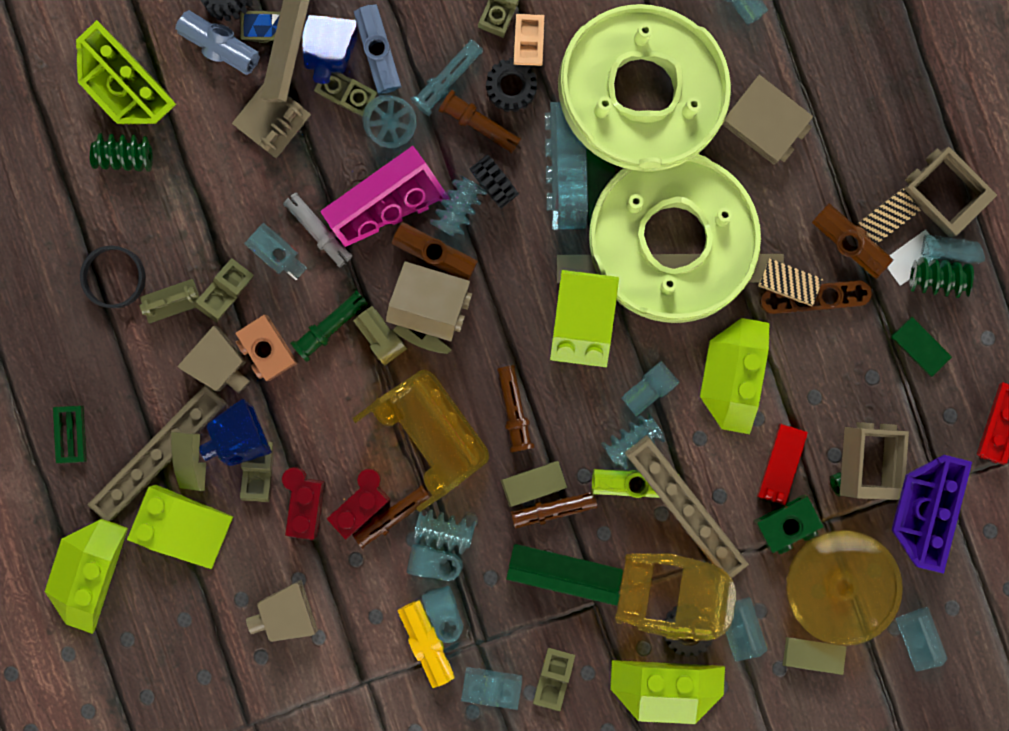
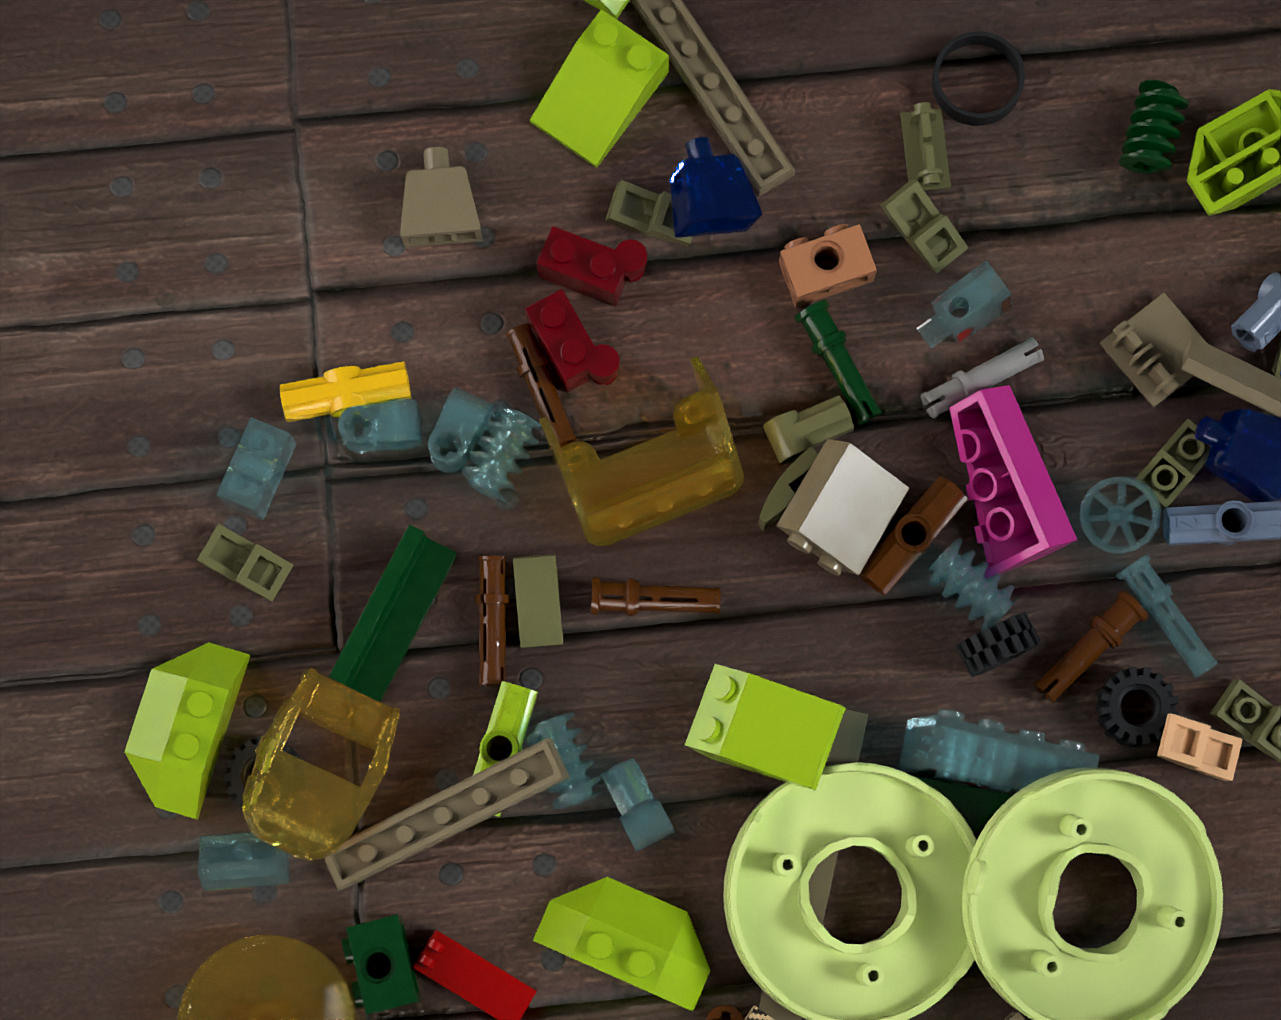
camera: 105 degrees right, 10 degrees down
(185, 458) = (706, 118): olive slope -> none
(216, 362) = (823, 191): dark tan torso -> none
(814, 656) = (176, 956): olive slope -> none

